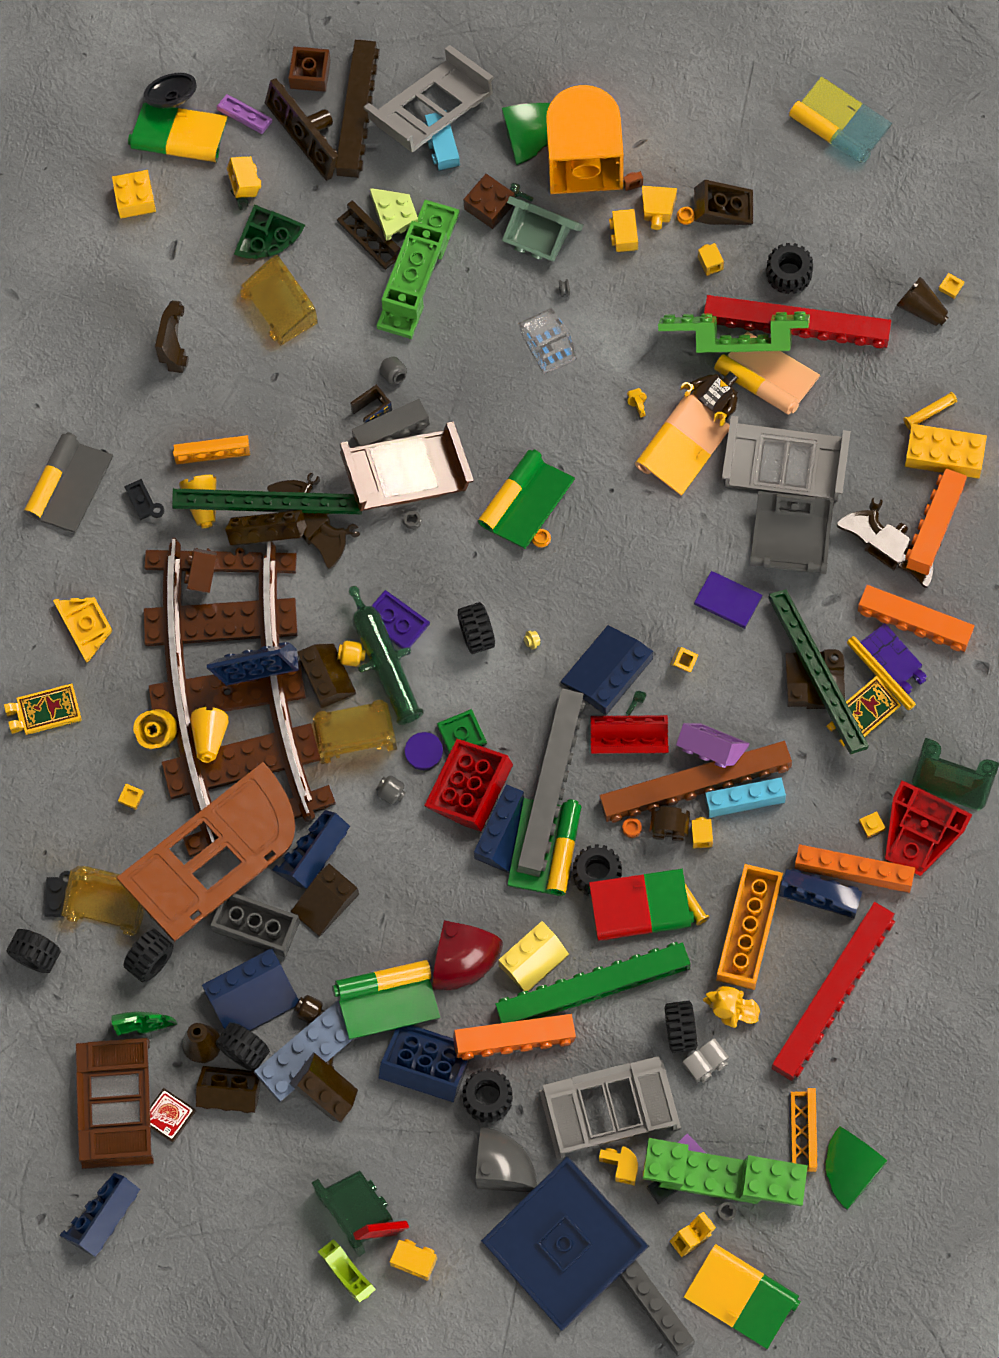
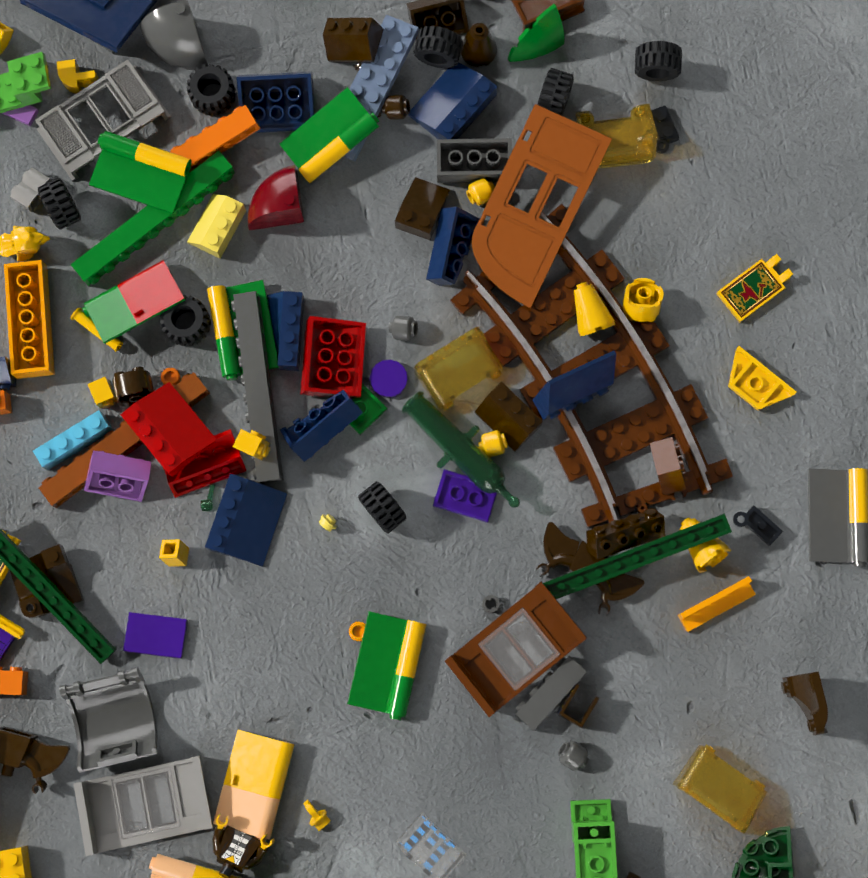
camera: 160 degrees right, 10 degrees up
(131, 796) = (638, 236): yellow plate -> none
(262, 891) = (480, 191): none -> yellow head
(505, 724) = (321, 425): none -> dark blue wedge
(574, 717) = (252, 444): none -> yellow brick
(589, 1026) = (140, 172): none -> green door
(648, 766) = (169, 428): none -> red slope

